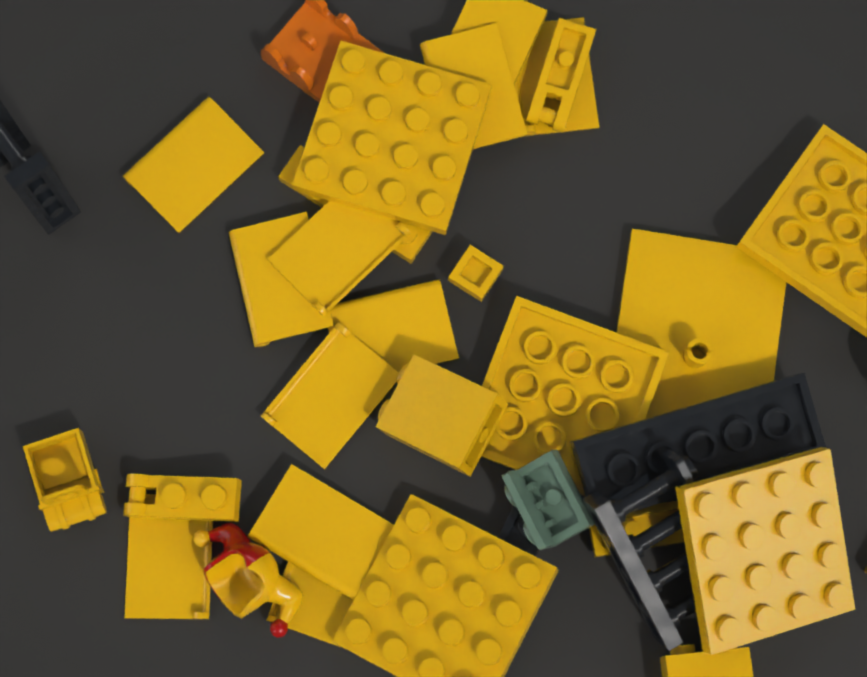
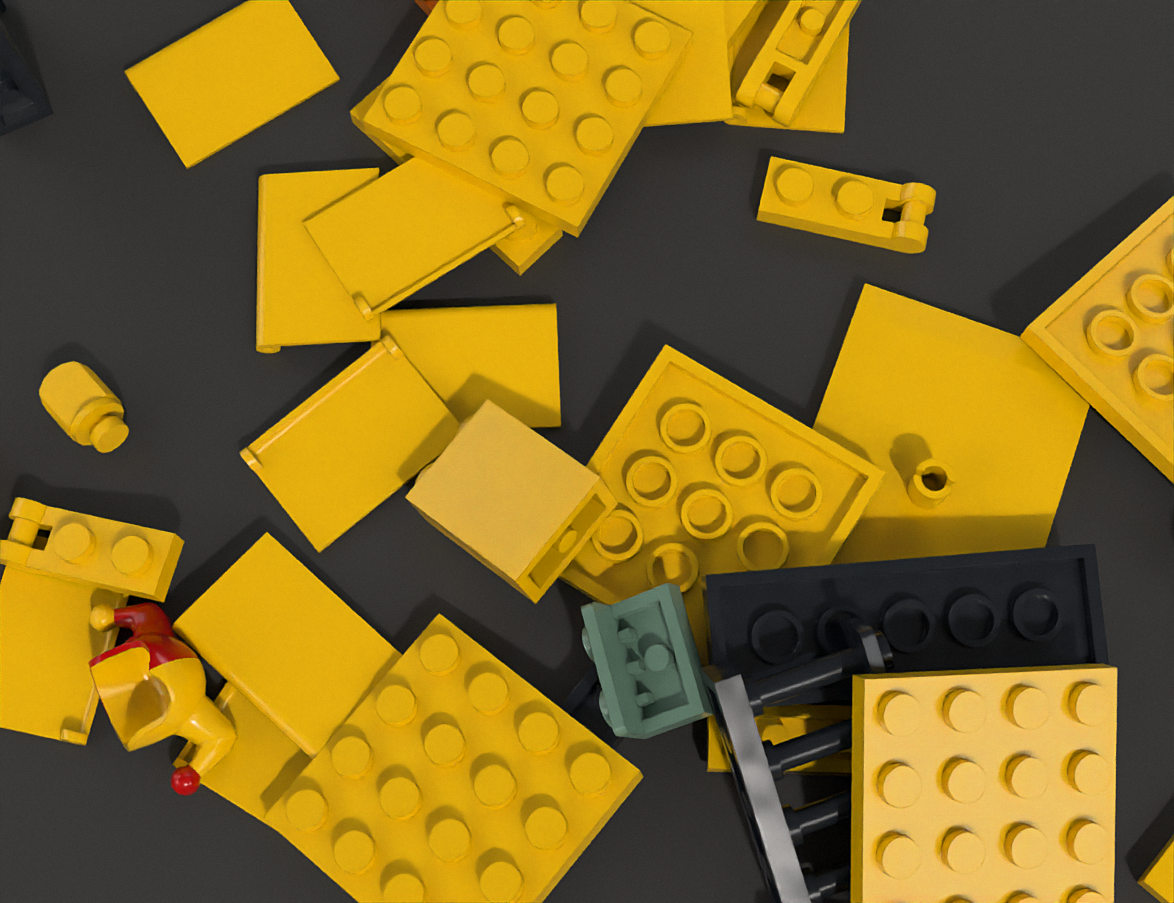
camera: 15 degrees right, 5 degrees down
(155, 406) = (84, 406): none -> yellow arm
(475, 273) = (612, 303): yellow plate -> none
(609, 178) = (846, 205): none -> yellow plate

